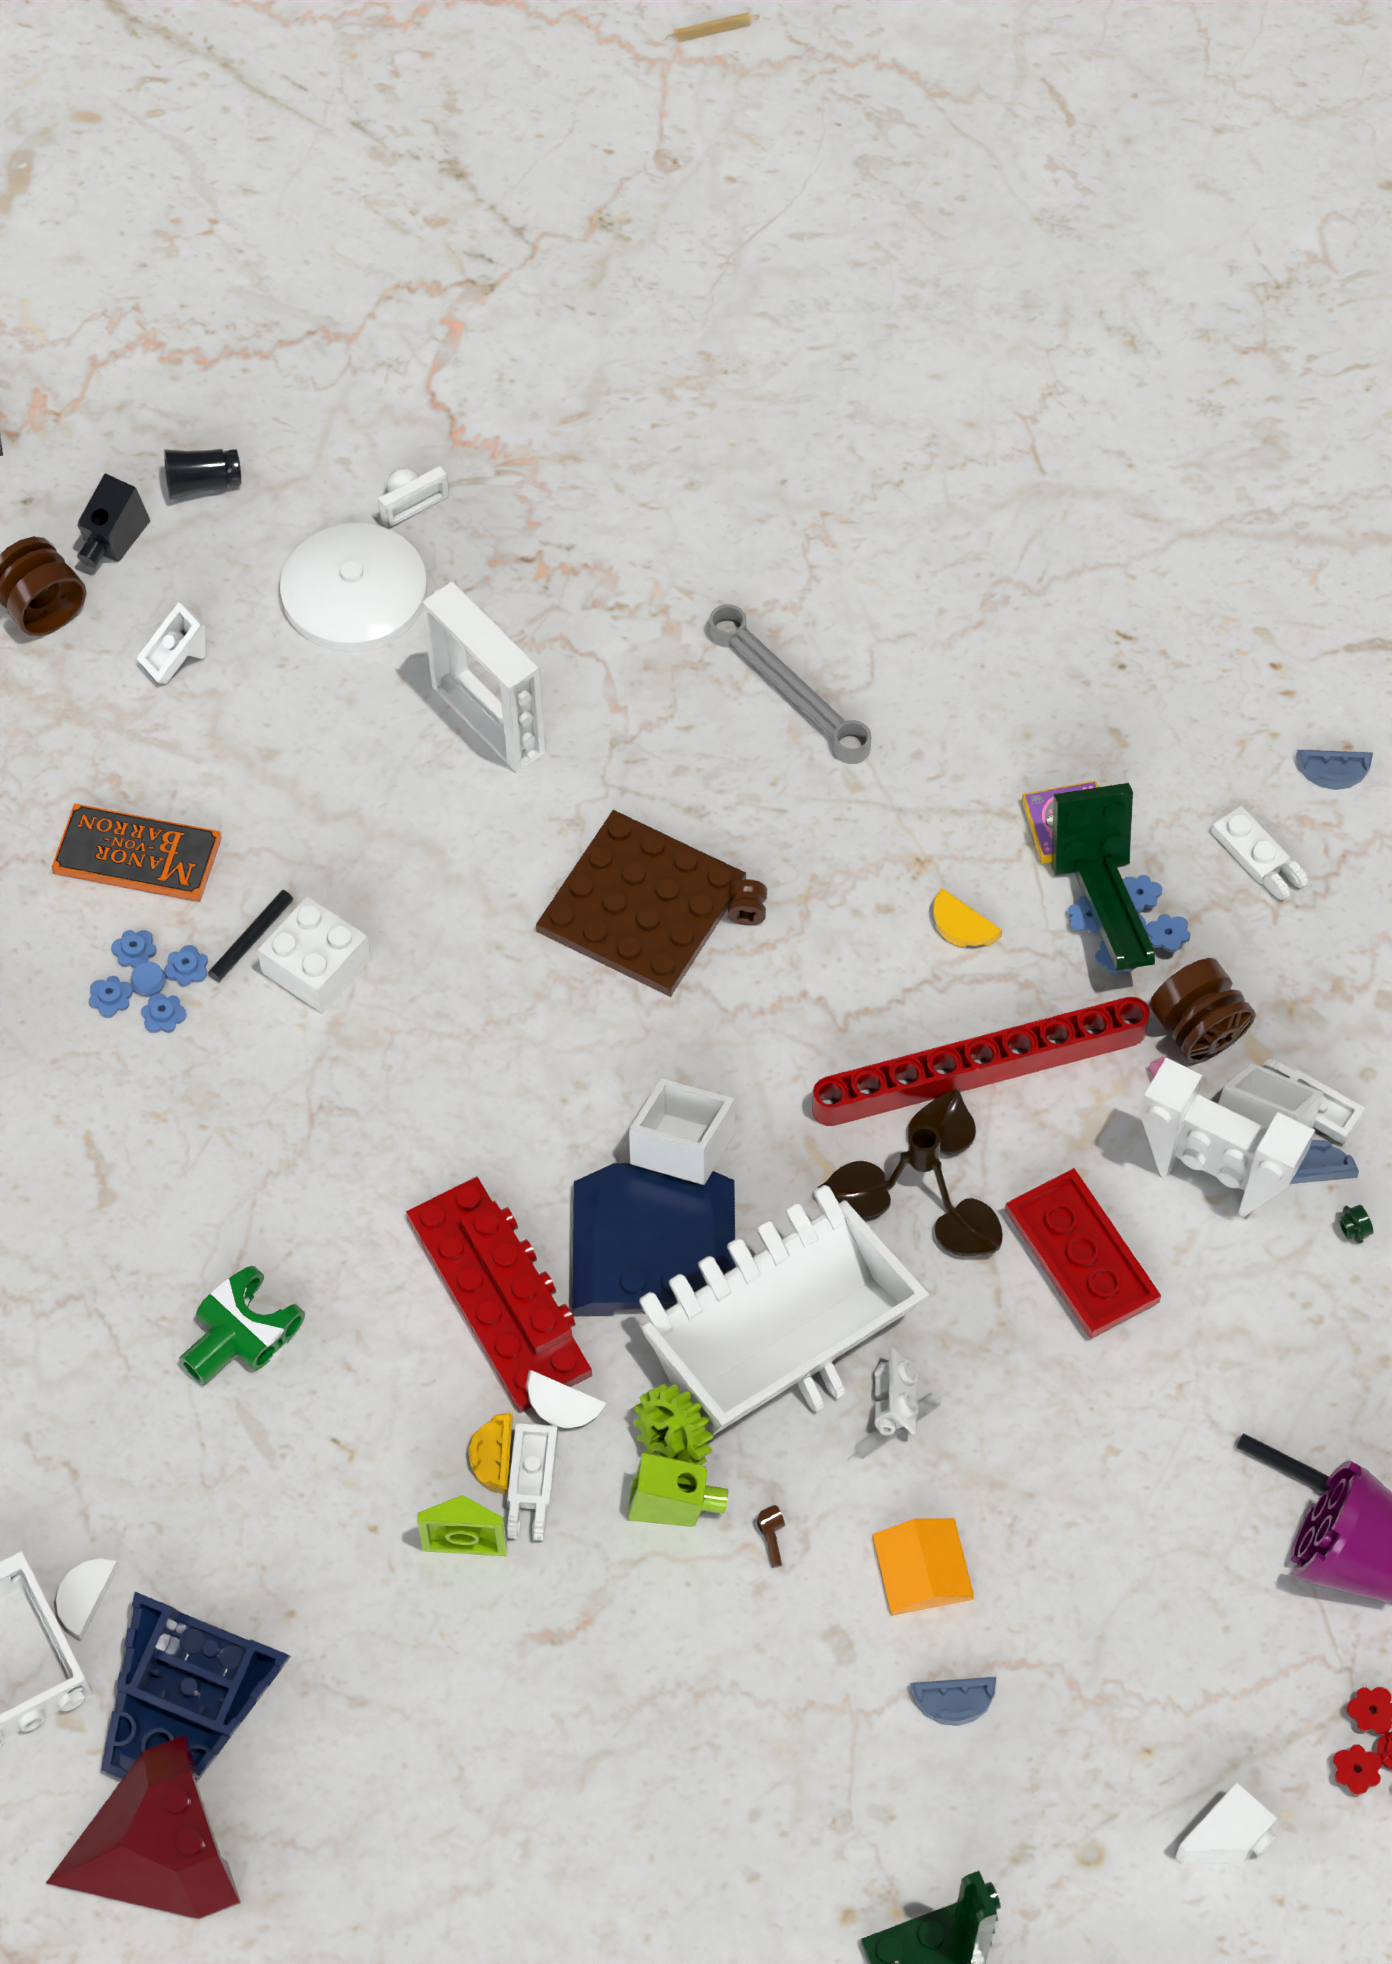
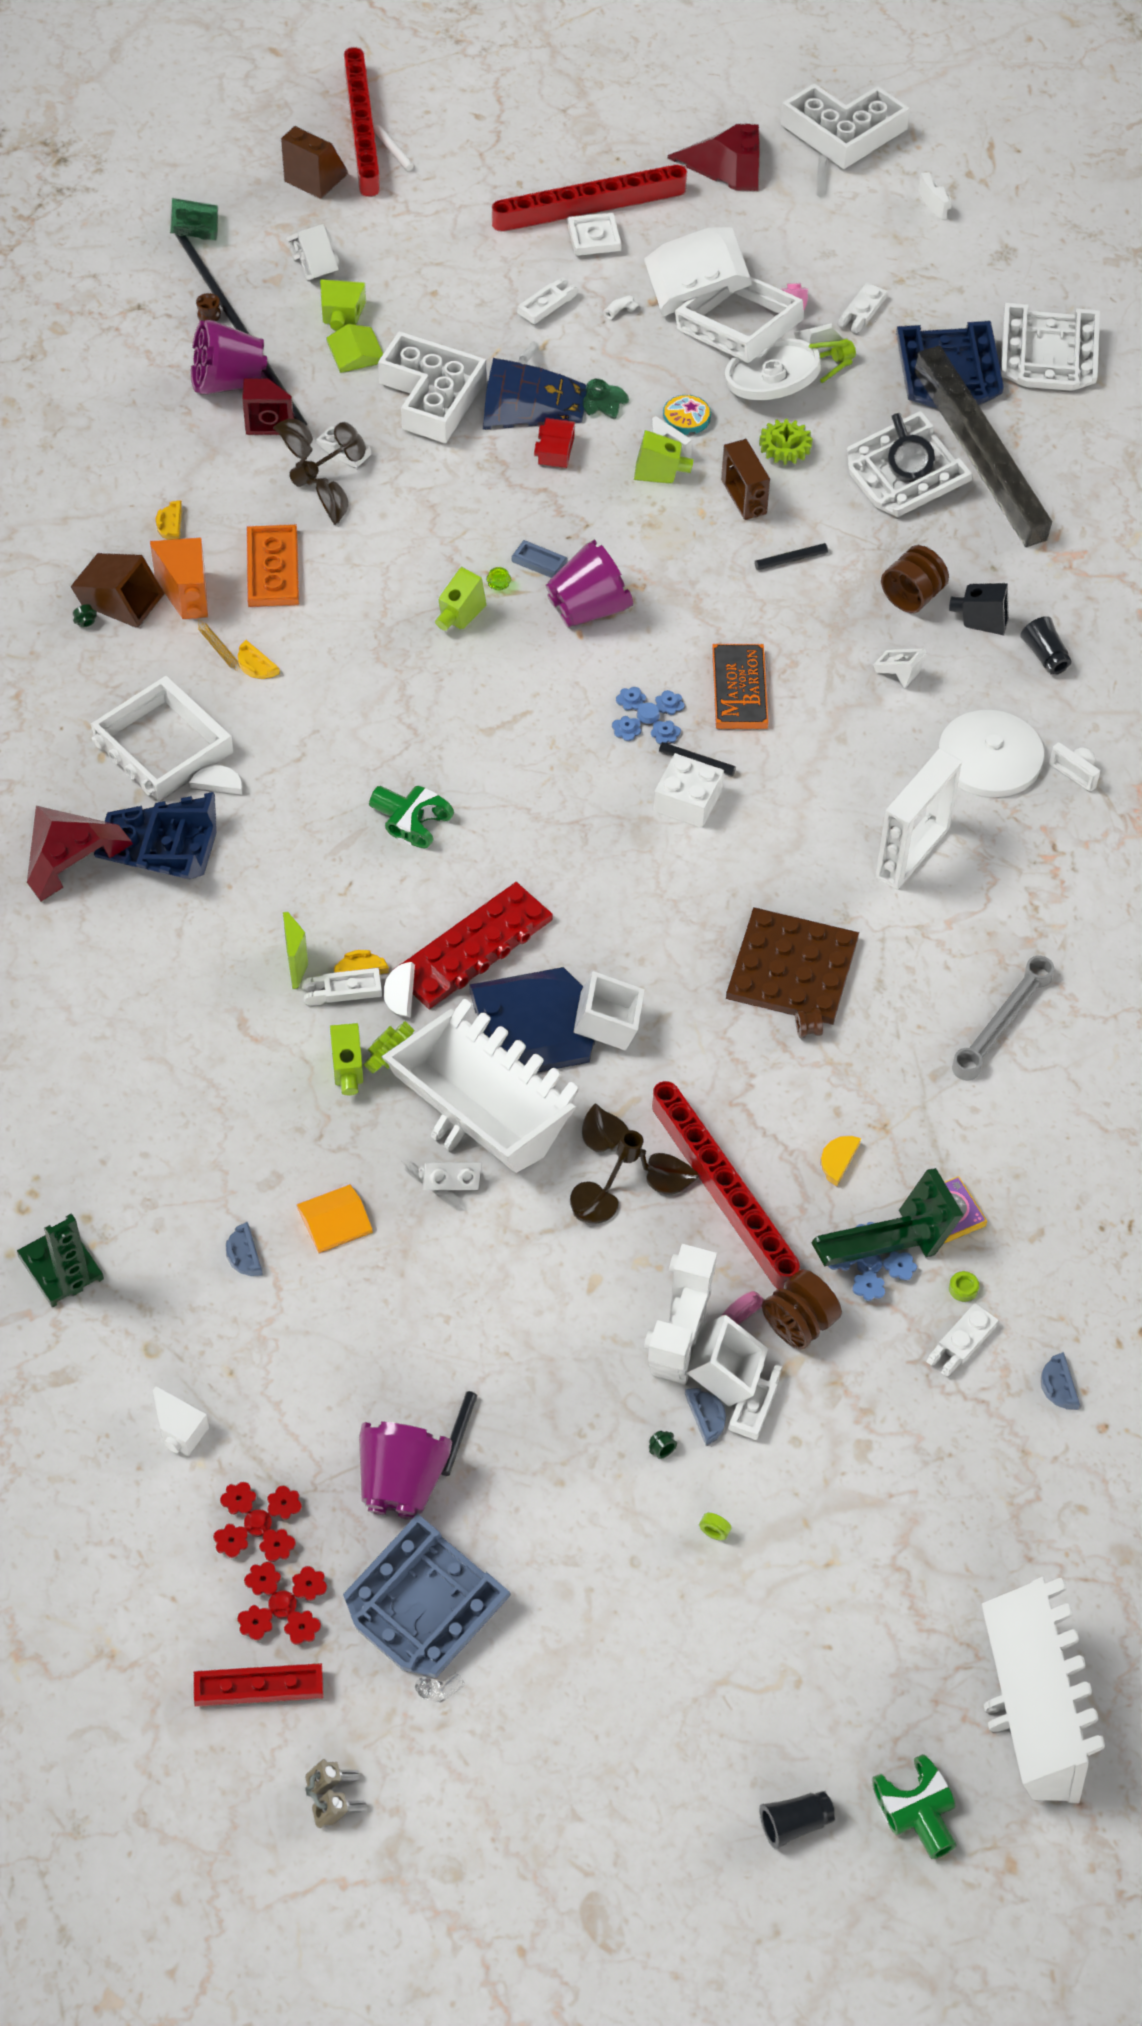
camera: 75 degrees right, 5 degrees down
(767, 1522) = (343, 1122): reddish brown hand -> none
(1082, 1253) = (590, 1272): red plate -> none
(1181, 832) = (963, 1286): none -> lime tile

